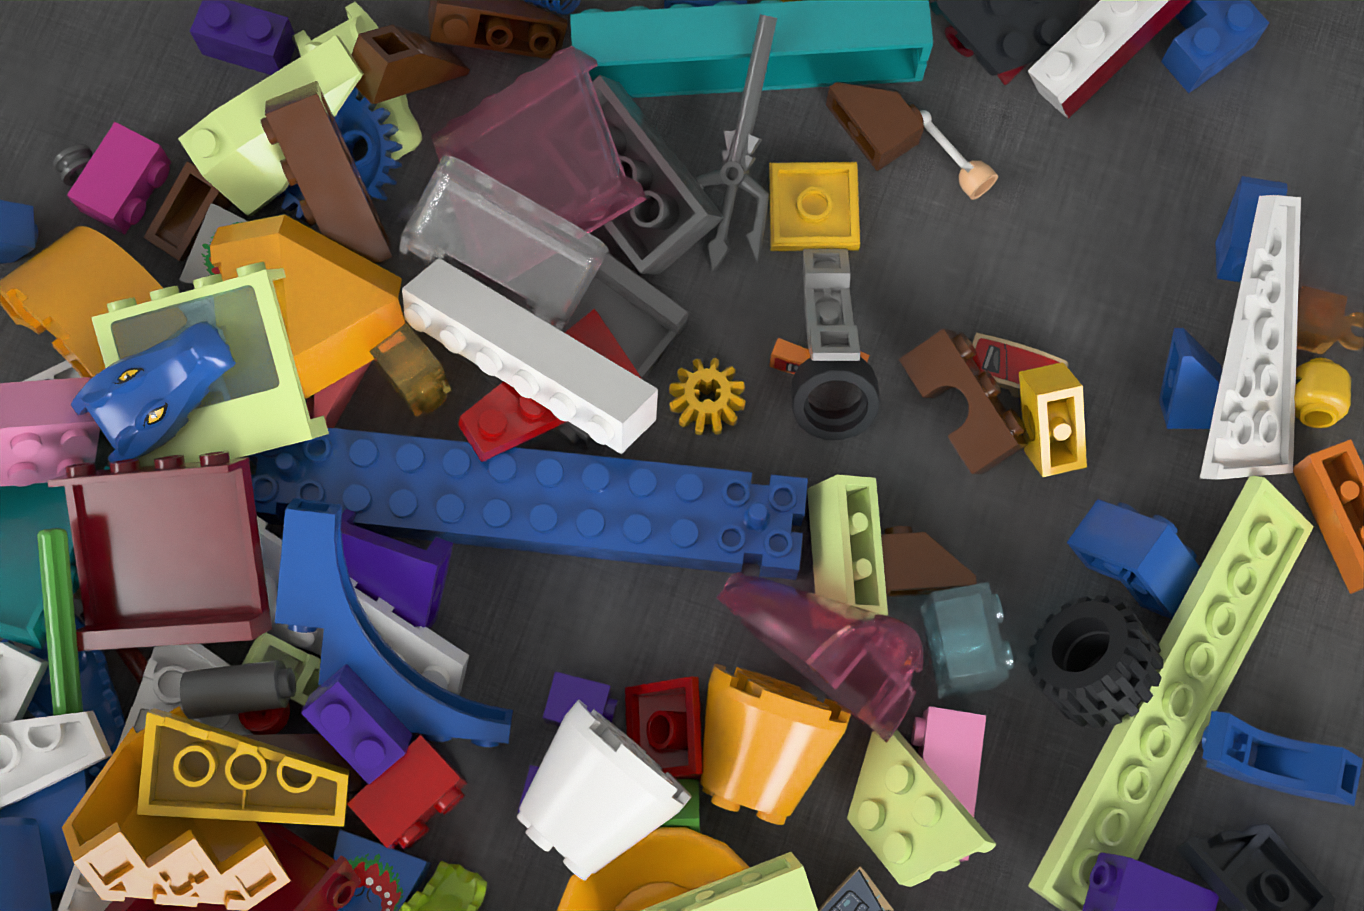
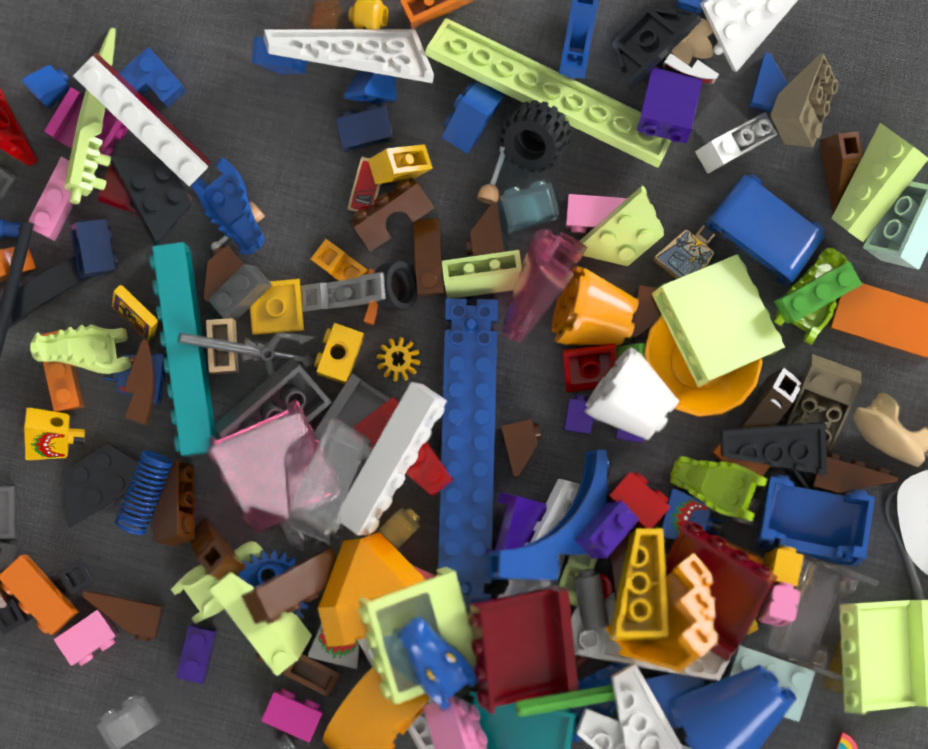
camera: 90 degrees left, 10 degrees up
(538, 593) = (520, 443): none -> reddish brown slope
(736, 320) = (339, 369): none -> yellow brick
(758, 839) = (647, 311): none -> reddish brown slope
(776, 110) = (222, 361): none -> tan brick
(842, 141) = (240, 292): none -> dark grey brick
(885, 309) = (337, 262): none -> light orange slope
(891, 459) = (428, 258): none -> reddish brown slope
(988, 136) = (228, 206): none -> blue animal
(999, 580) = (489, 193): none -> light nougat hinge
(1117, 370) = (364, 128): none -> dark blue brick

